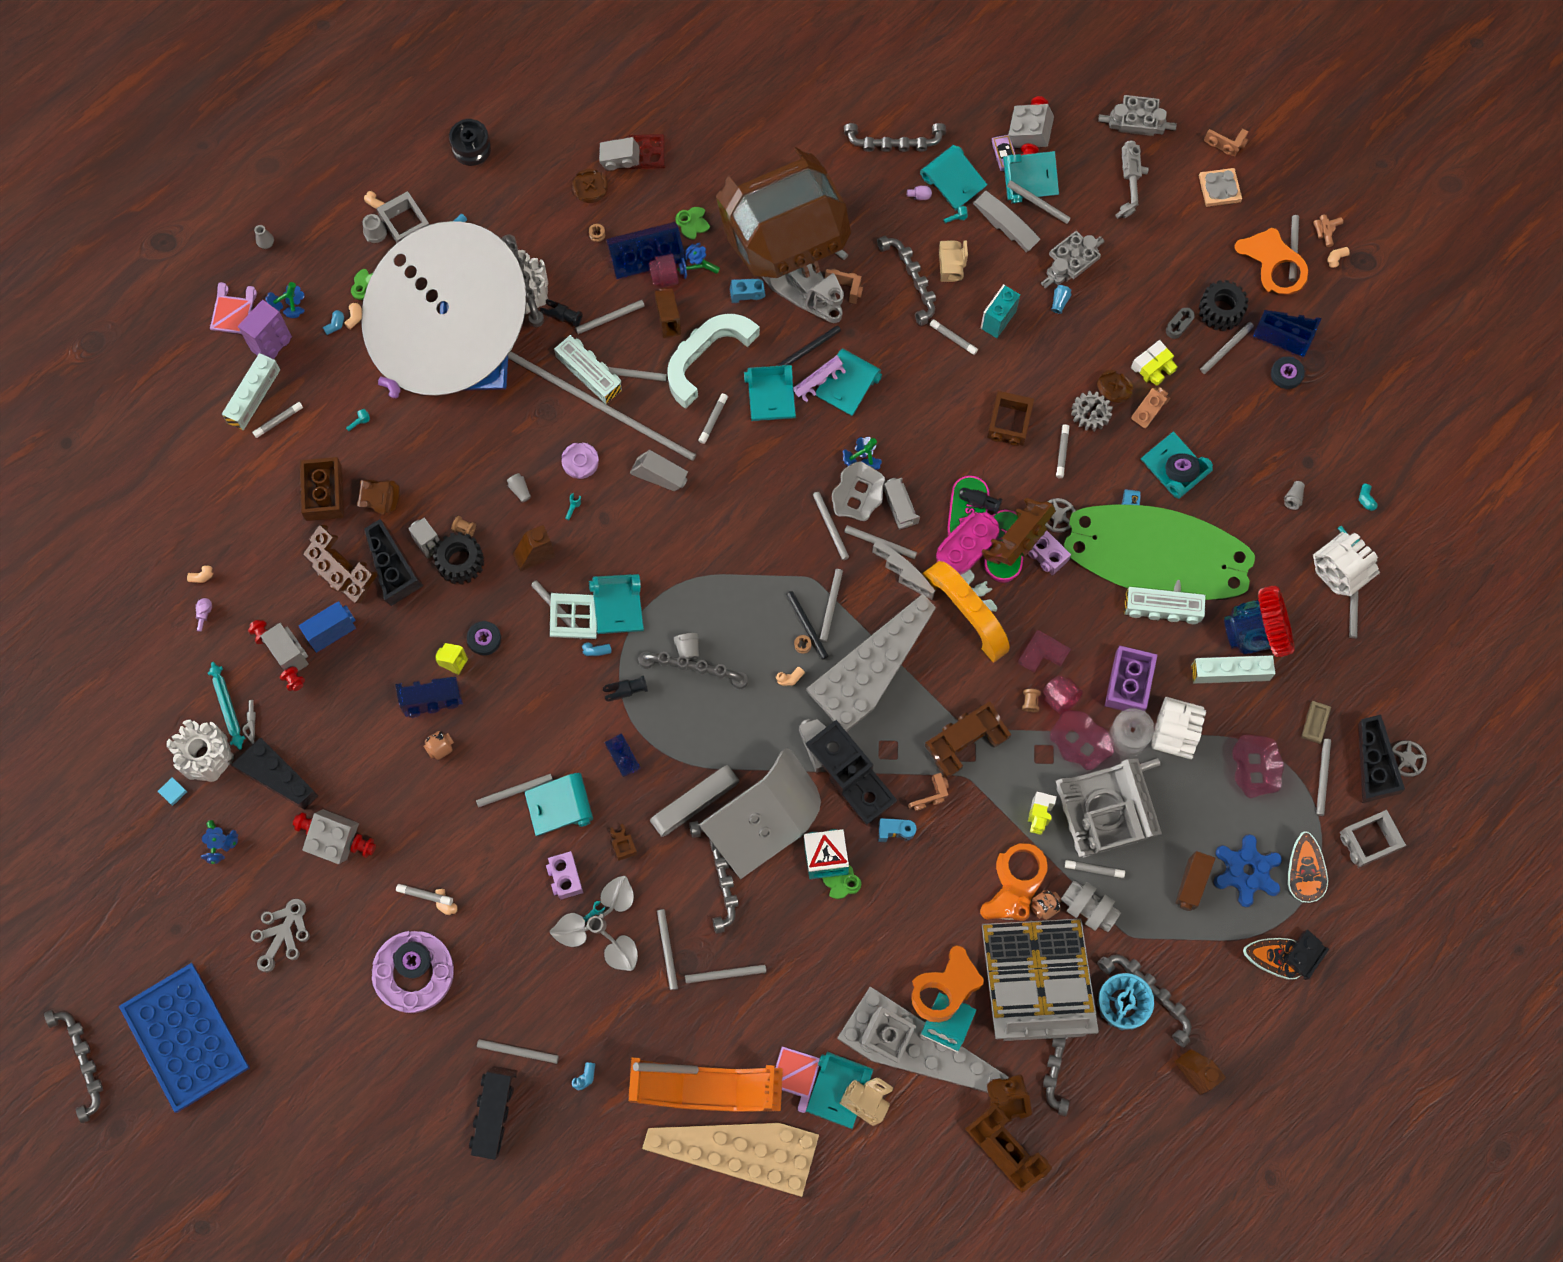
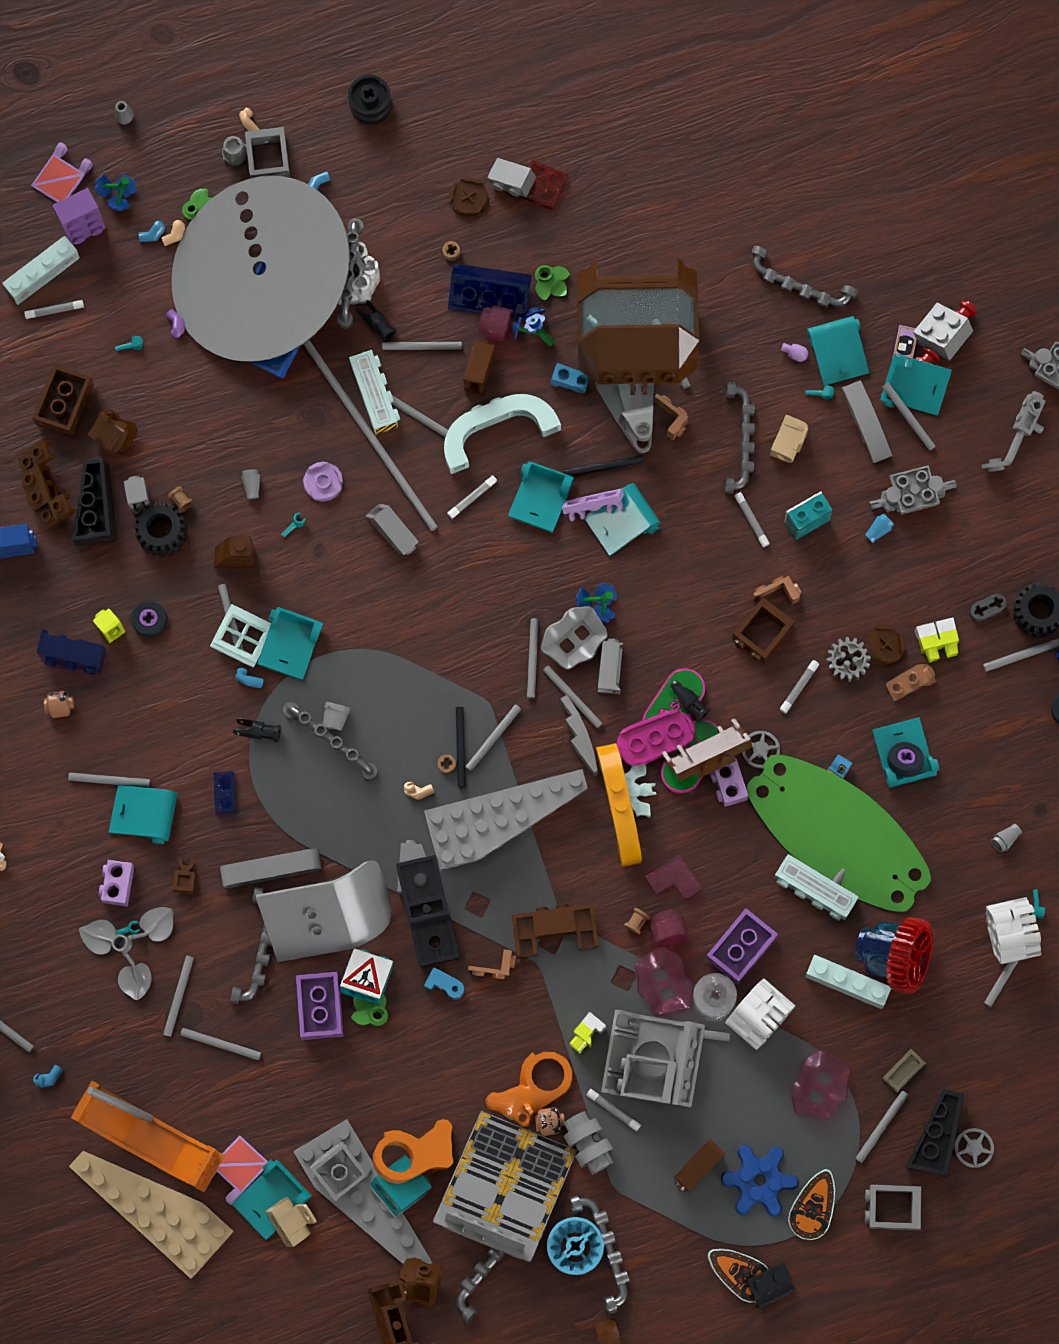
camera: 30 degrees right, 5 degrees up
(798, 898) = (319, 1006): none -> medium lavender brick
(1012, 375) = (791, 590): none -> nougat bracket

